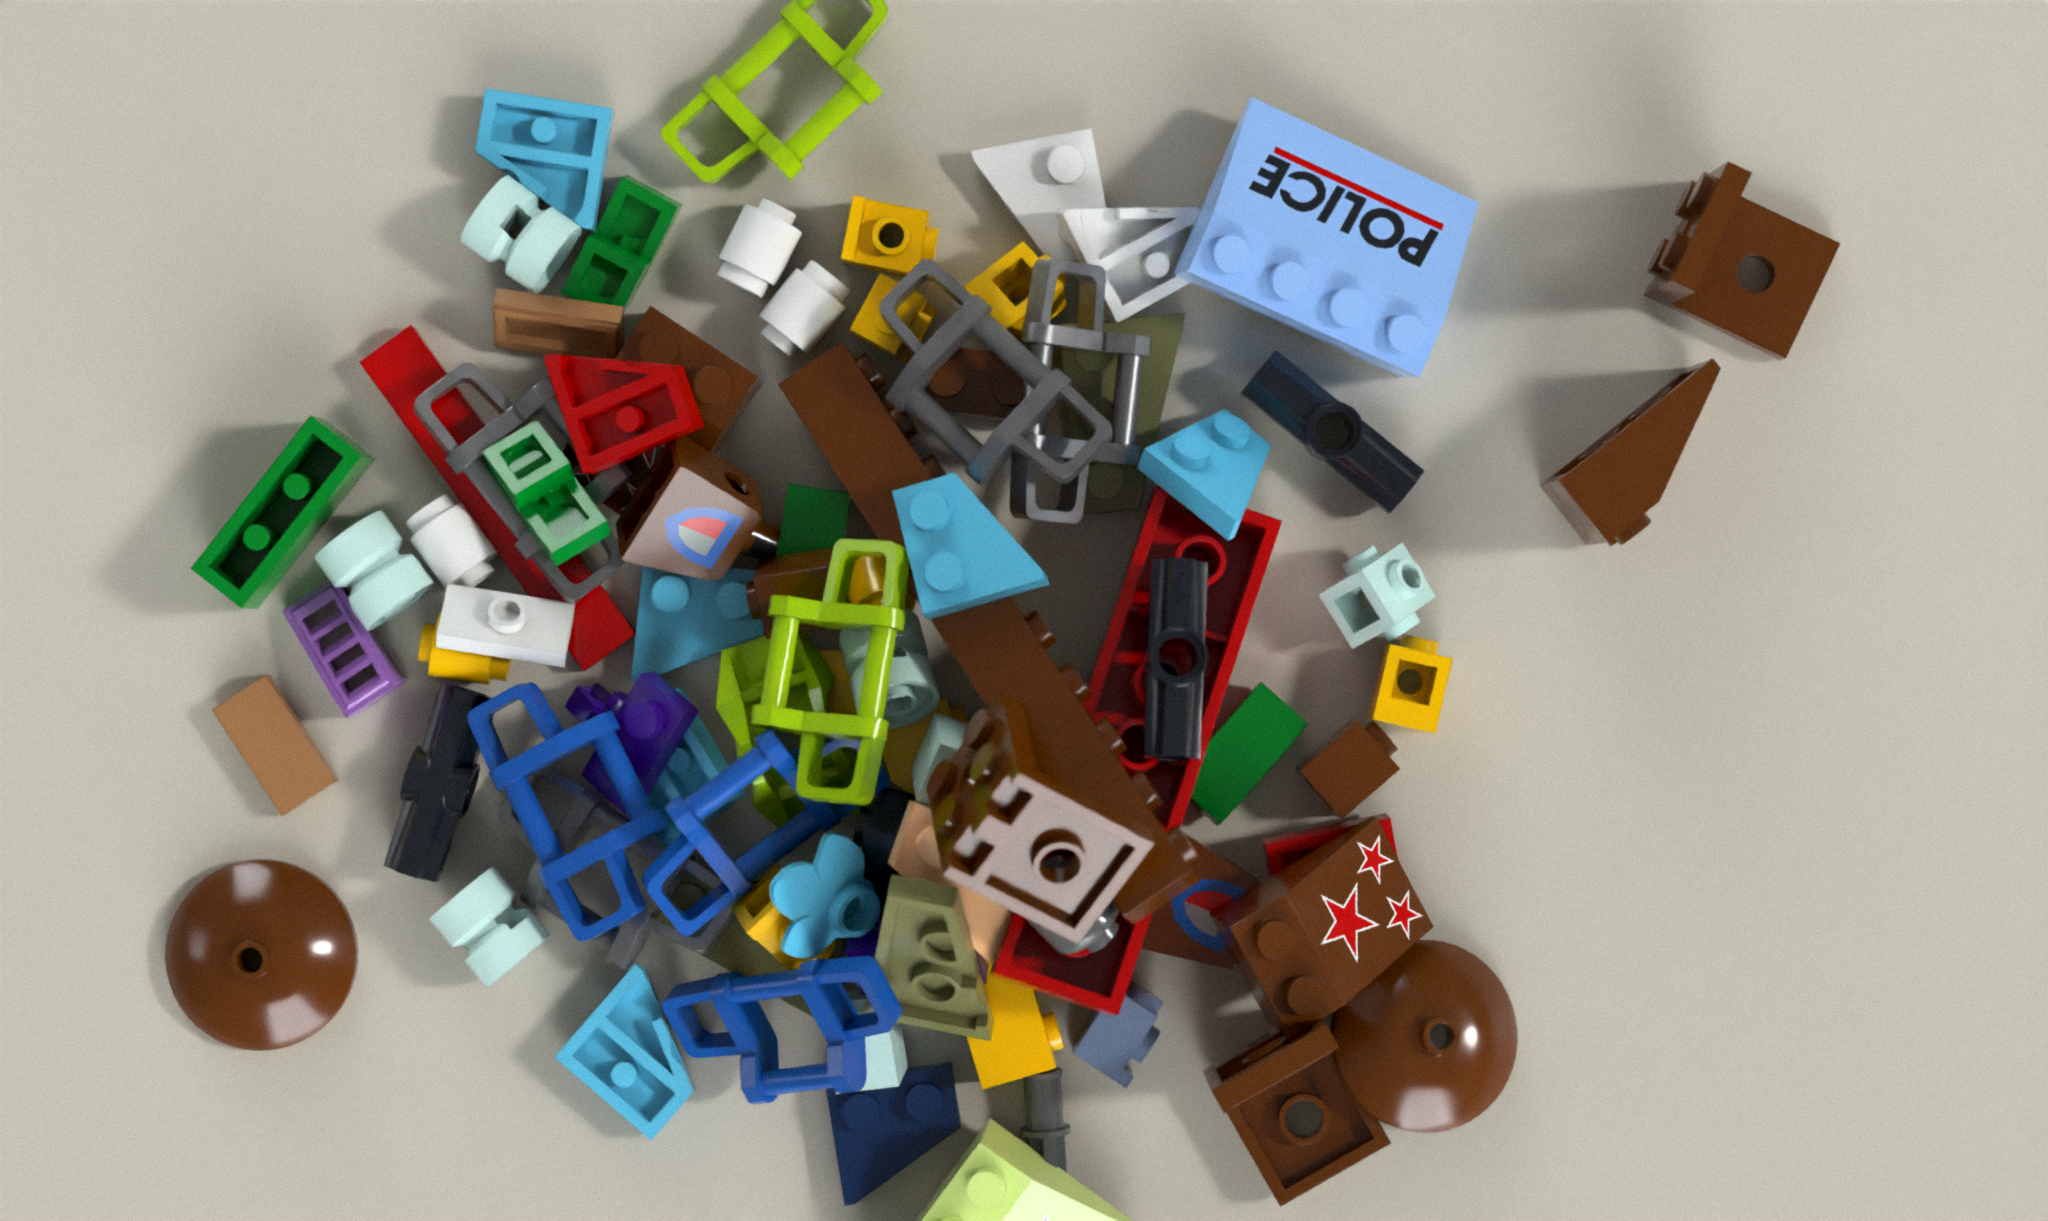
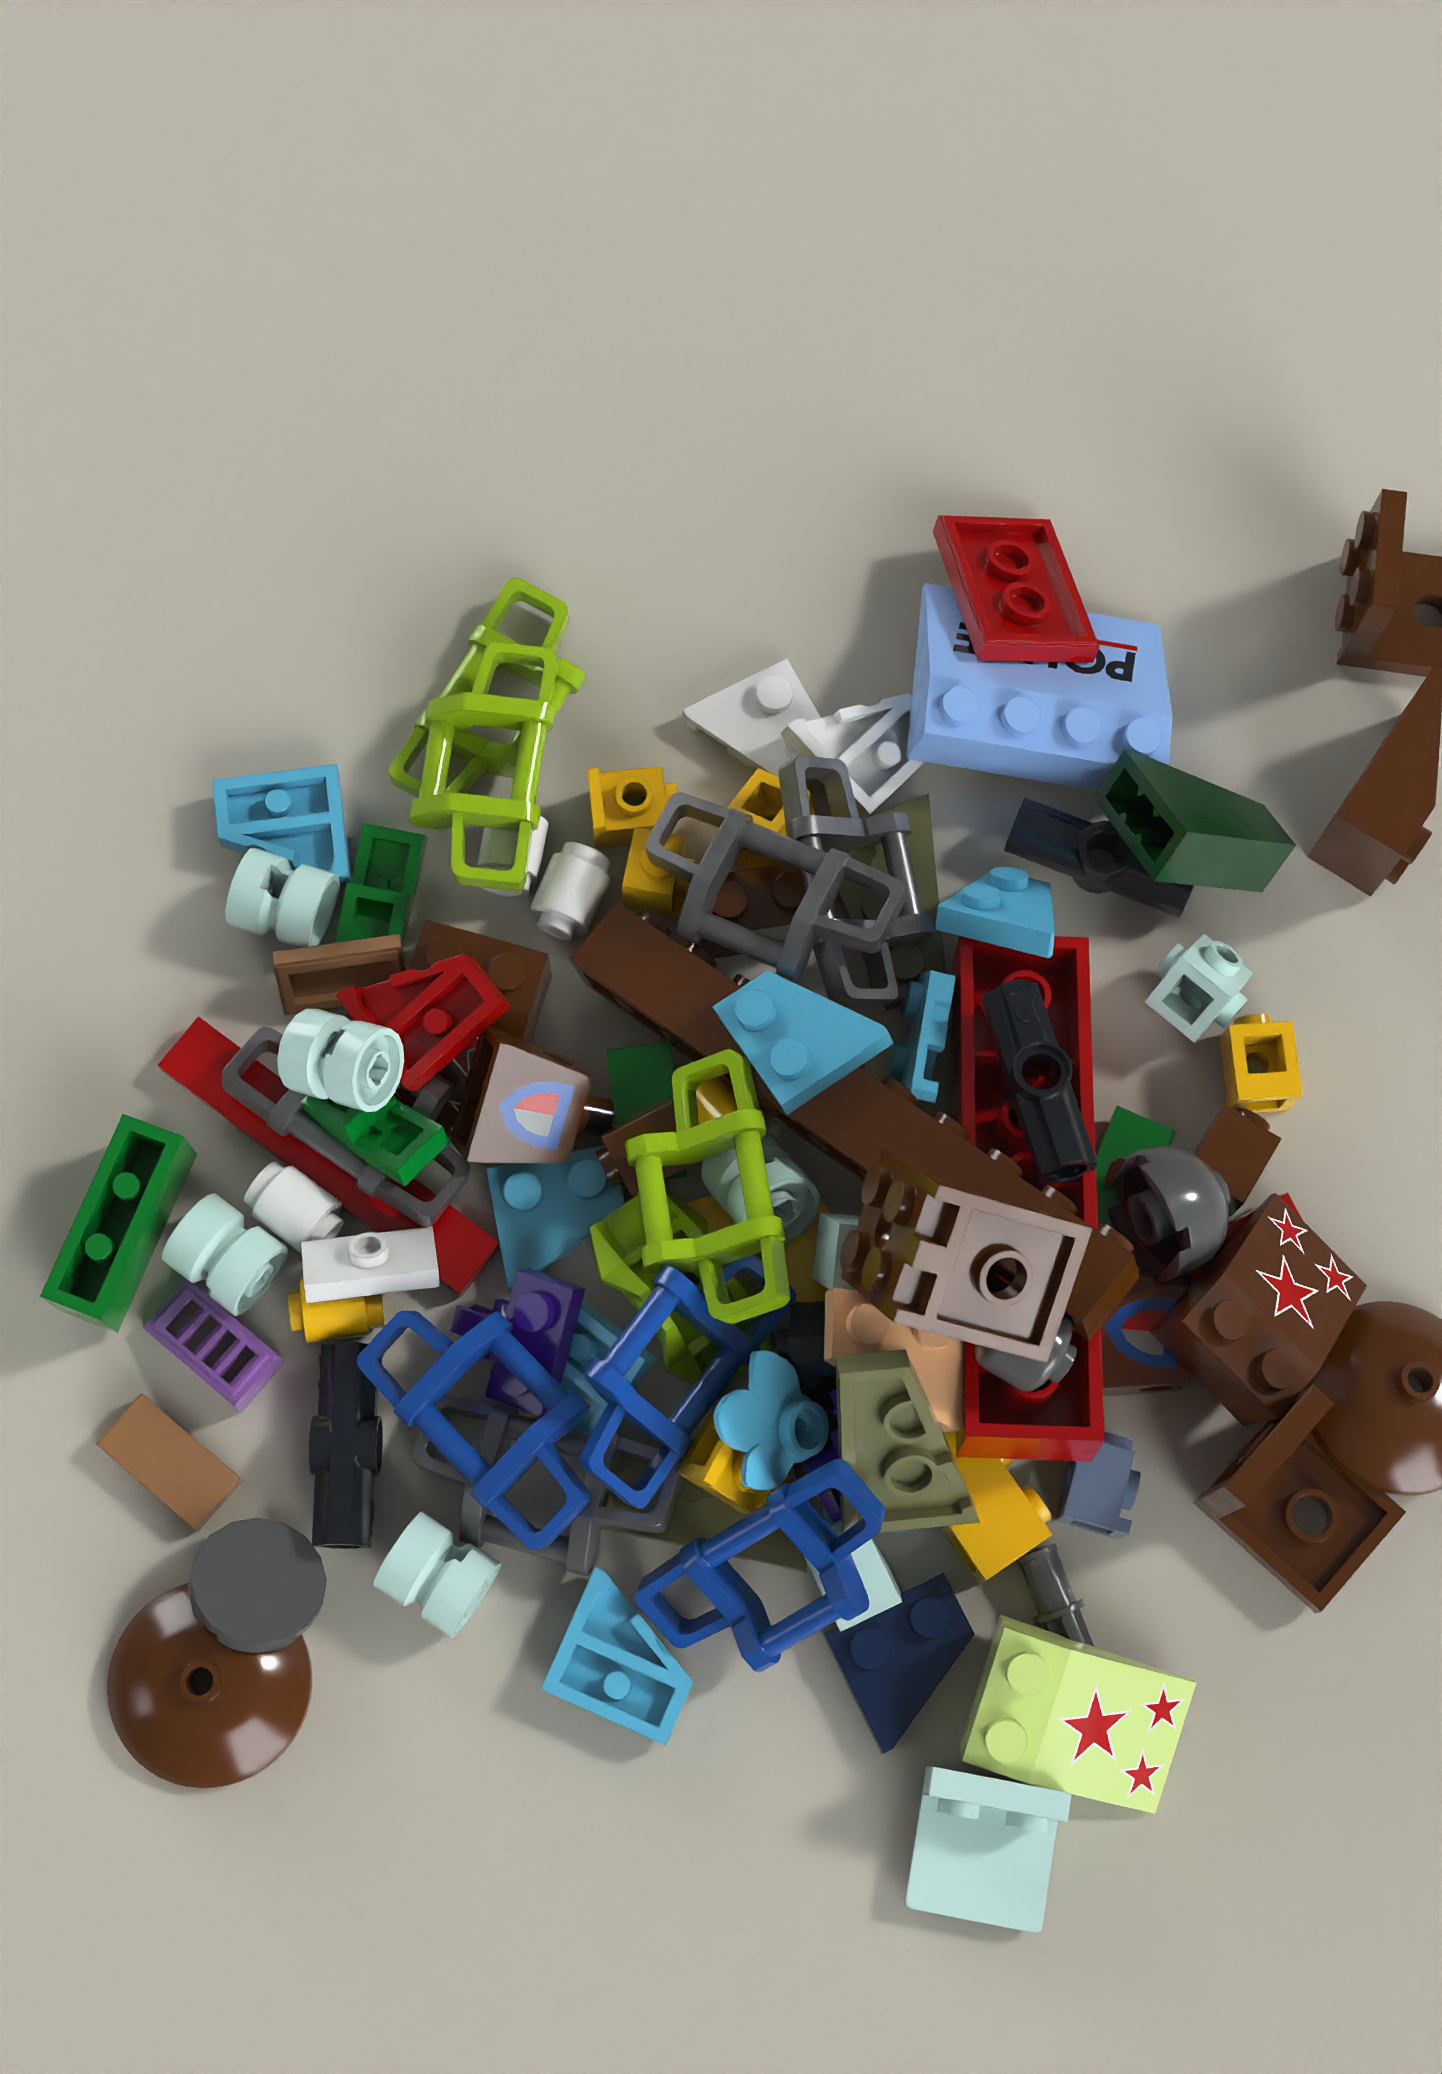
camera: 20 degrees left, 15 degrees down
(324, 885) = (257, 1585): none -> dark grey tile
(527, 431) = (340, 1059): none -> light aqua wheel
(814, 134) = (463, 710): none -> lime bar
(1077, 584) = (927, 1009): none -> medium azure wing
(1266, 808) = (1169, 1208): none -> dark grey cylinder
(1338, 132) = (1015, 589): none -> red tile
(1422, 438) = (1190, 827): none -> dark green slope

